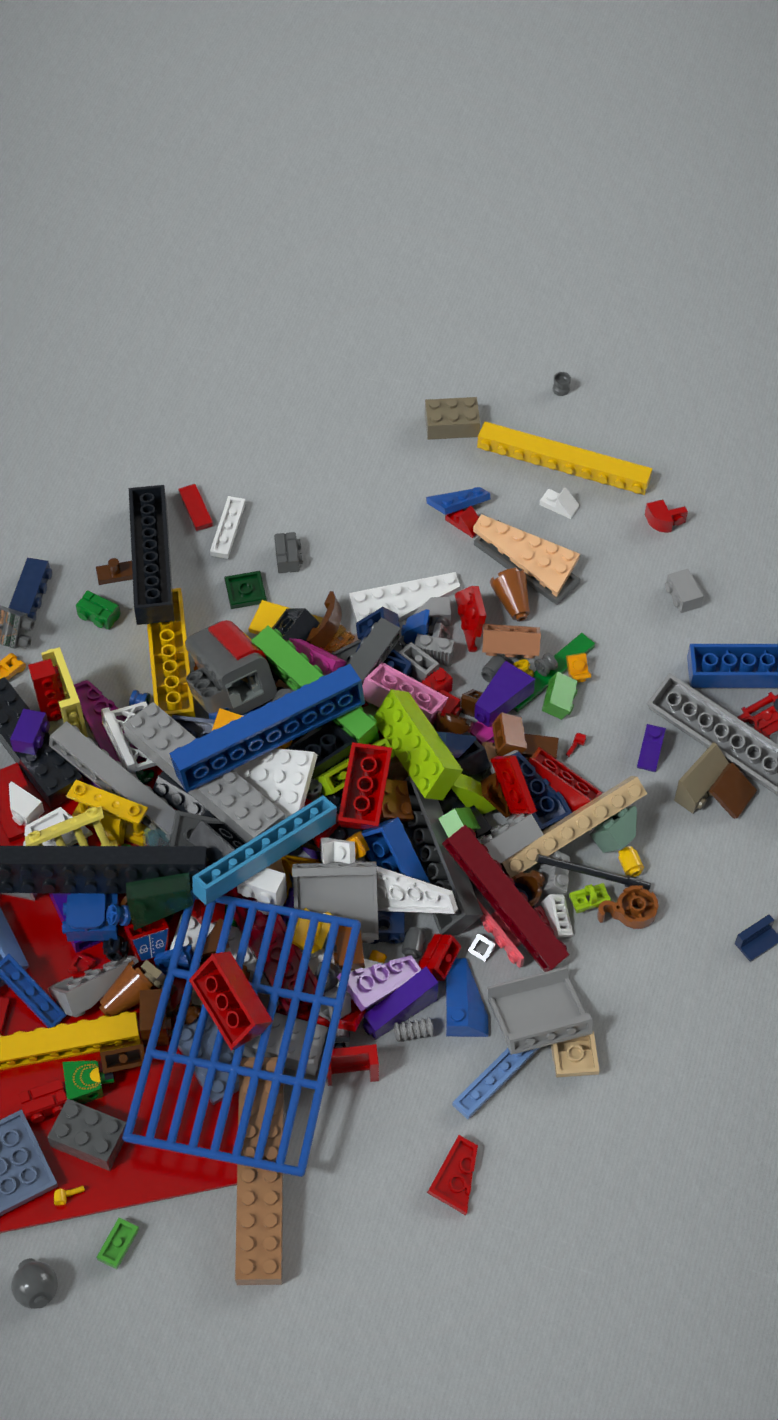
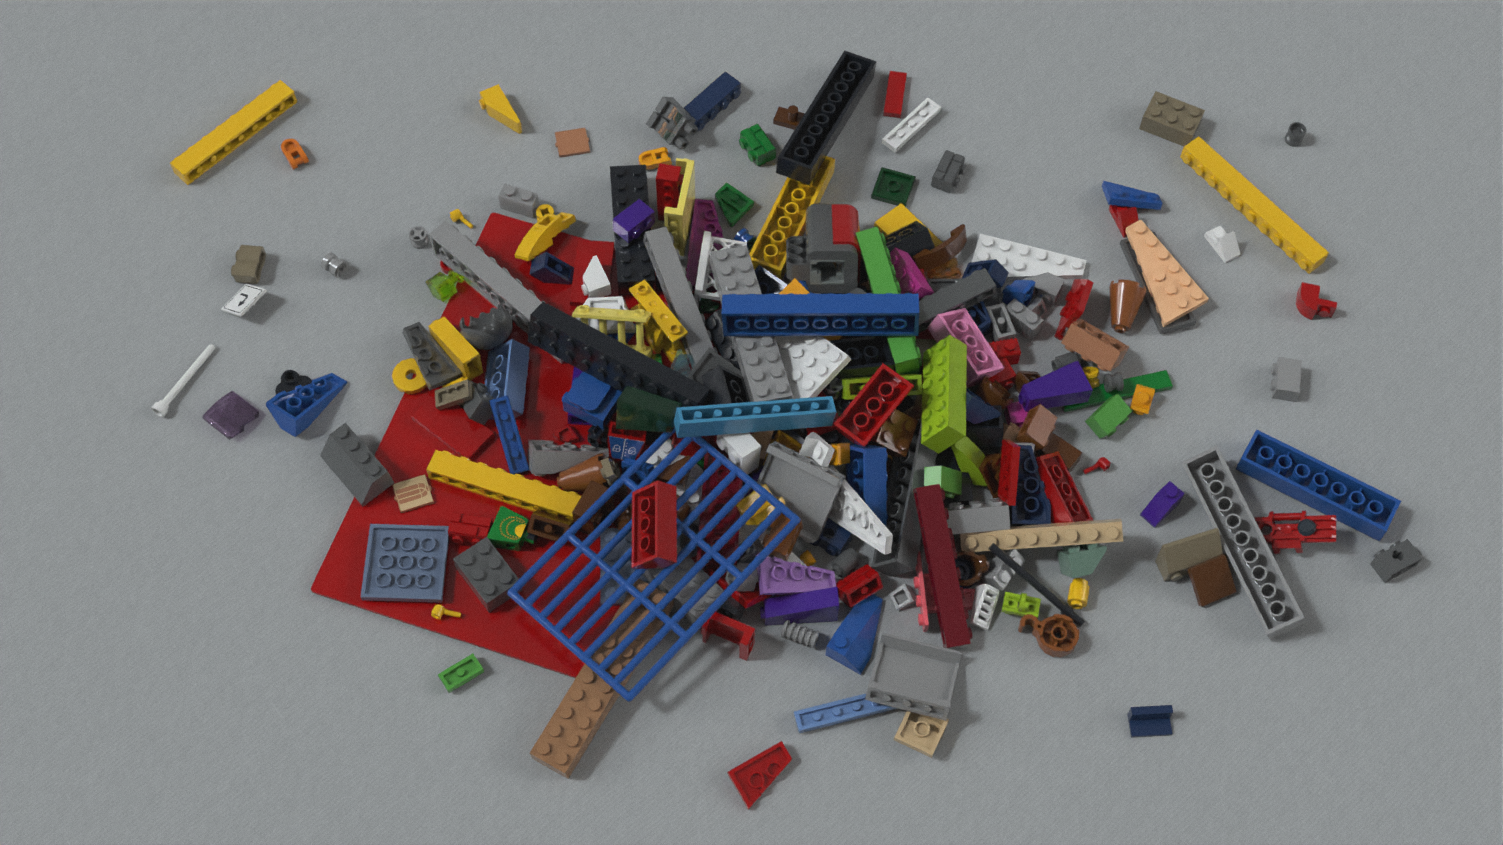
camera: 30 degrees right, 5 degrees up
(34, 1284) = (378, 668): dark grey brick -> none
(107, 673) = (733, 203): none -> green wing
(118, 915) = (608, 409): blue wheel -> none

